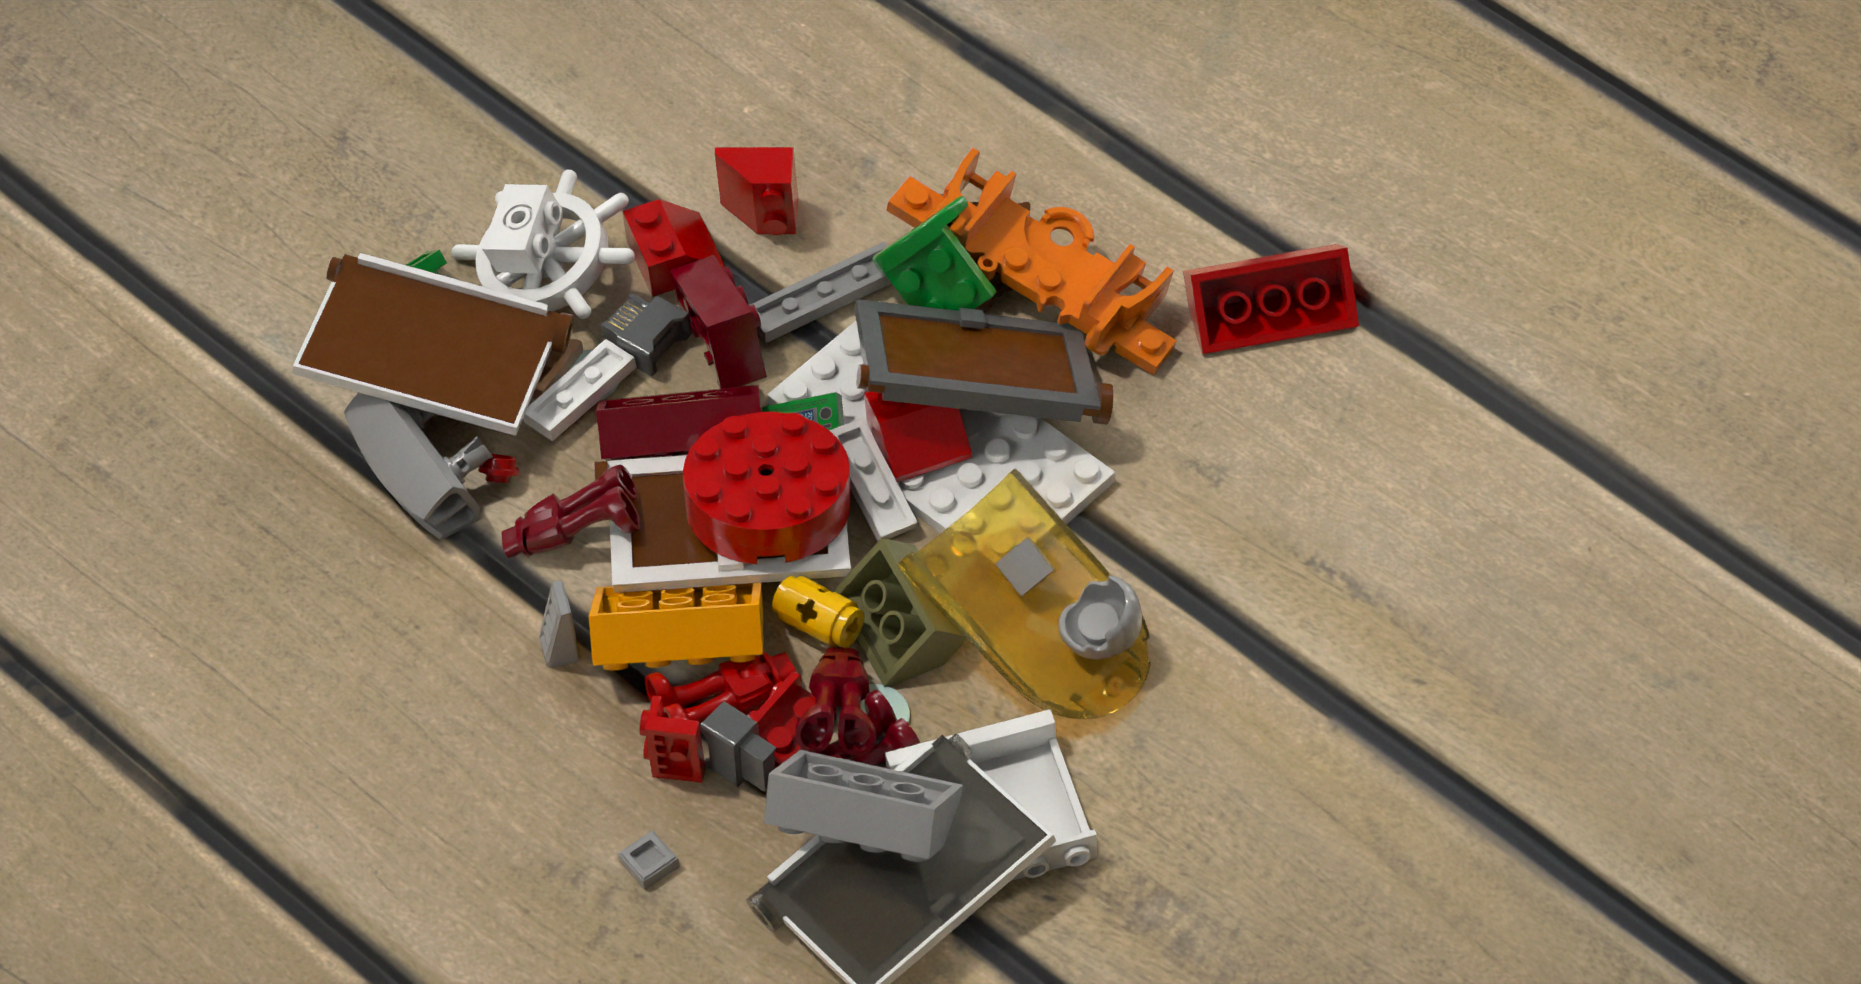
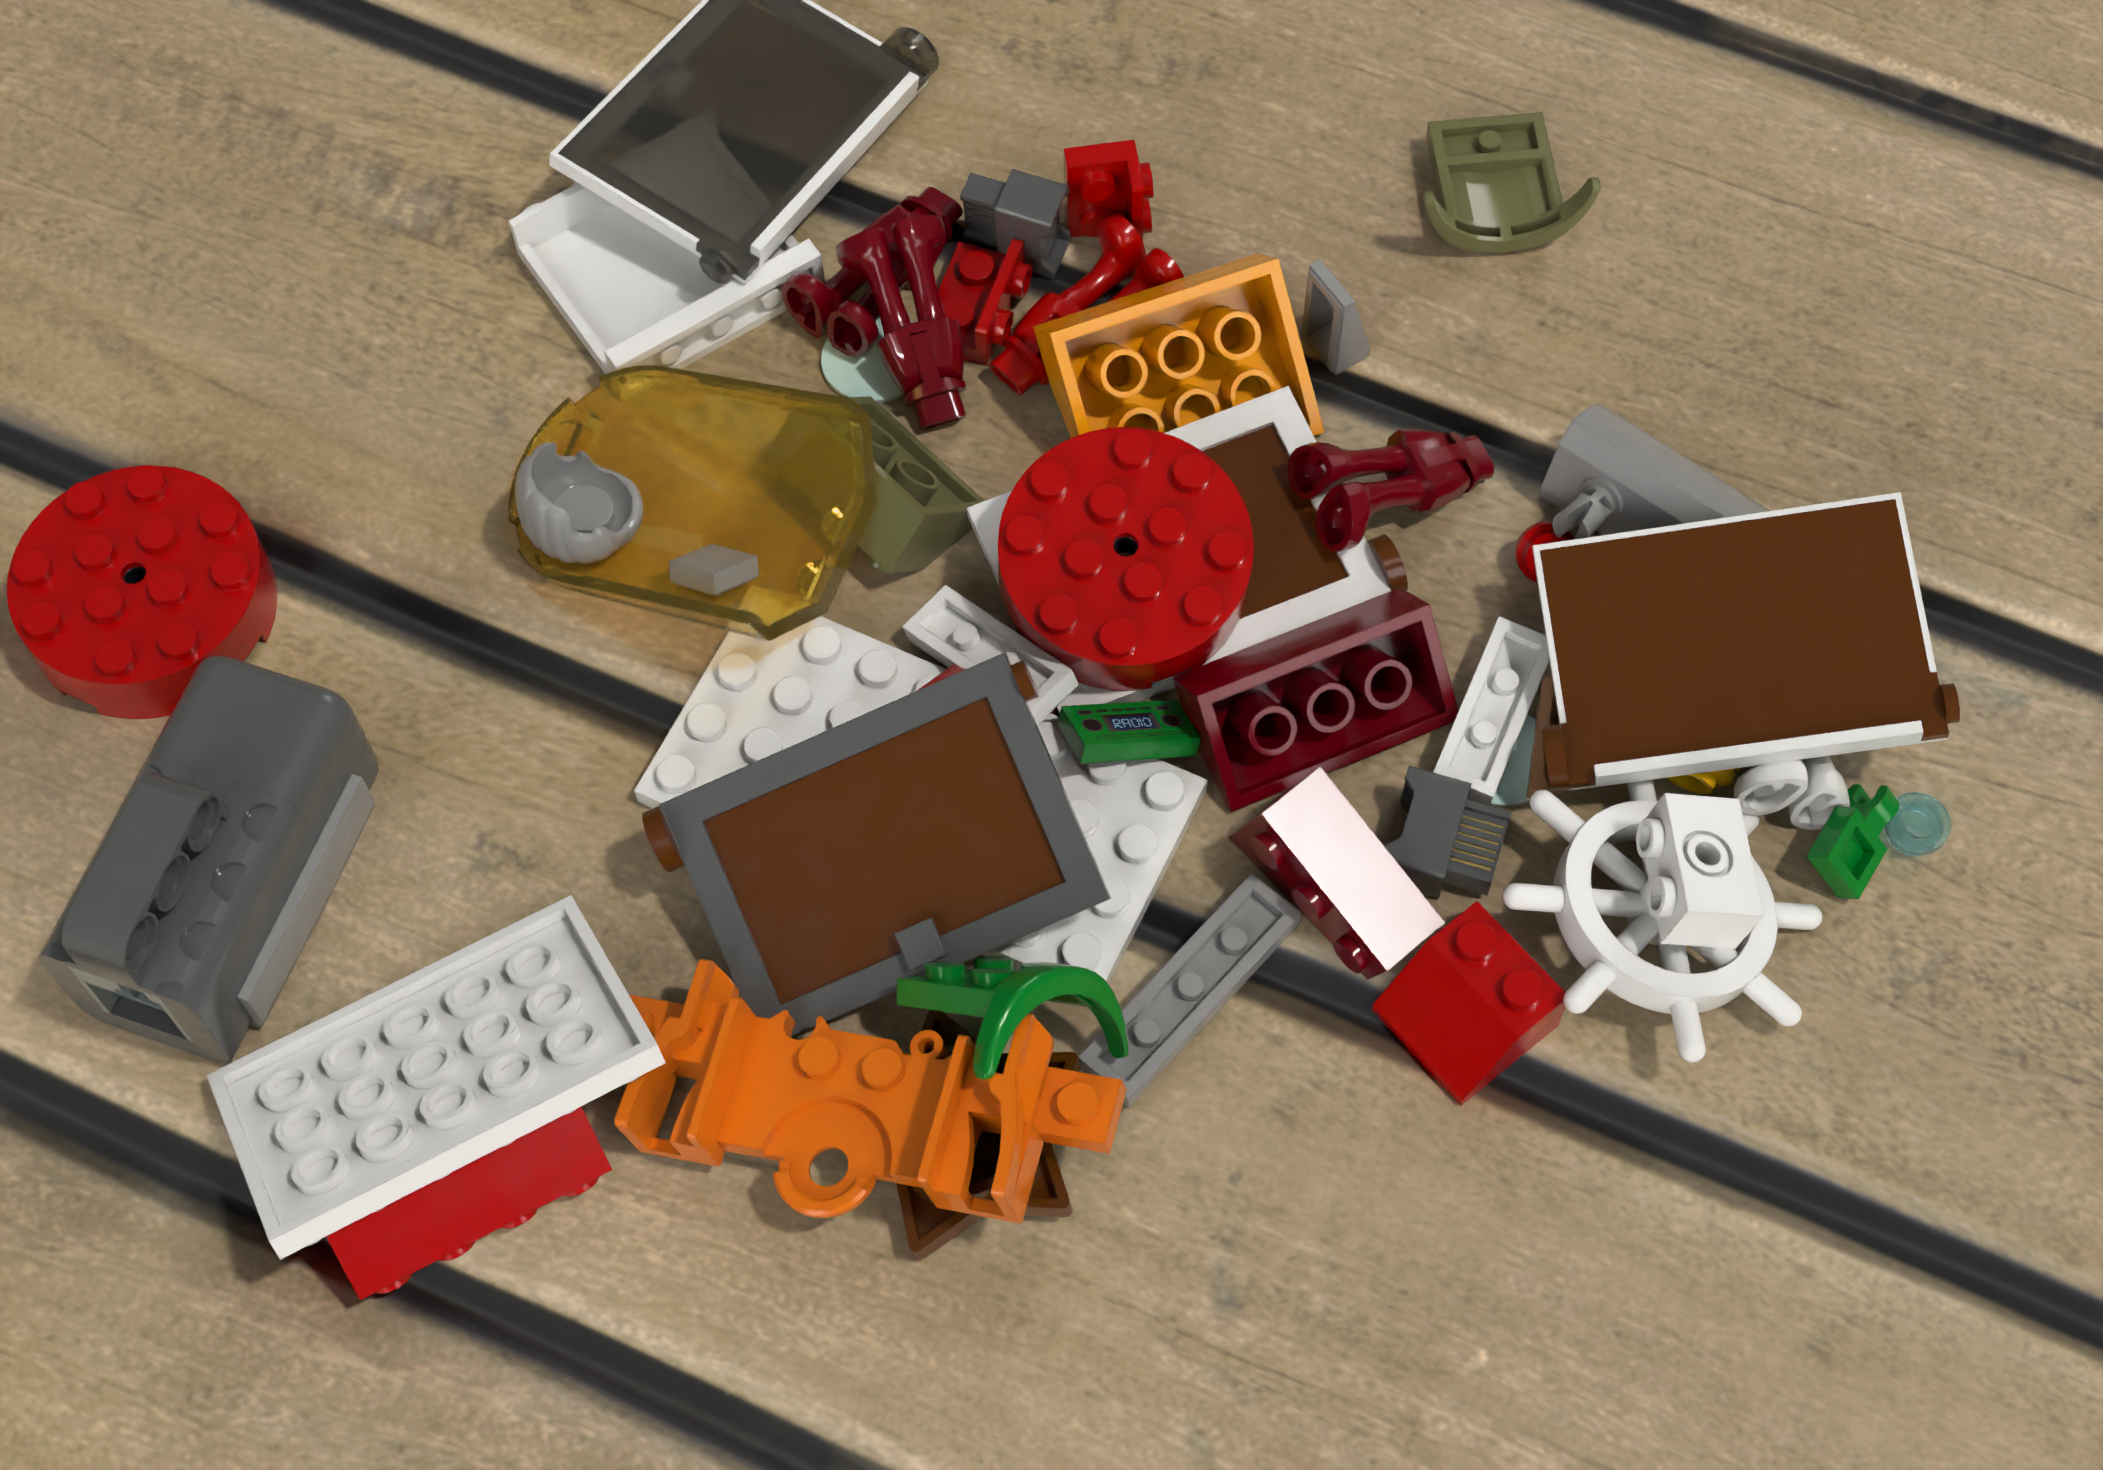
camera: 160 degrees right, 10 degrees up
(397, 708) = (1499, 184): none -> olive piece
(648, 860) = (1088, 99): light grey tile -> none
(759, 187) = (1366, 1117): red slope -> none
(818, 611) = (961, 443): yellow piece -> none
(861, 805) = (812, 141): light grey slope -> none
(1271, 324) = (430, 1074): none -> white plate
(1379, 455) = (217, 860): none -> dark grey piece
(1402, 658) = (137, 586): none -> red piece

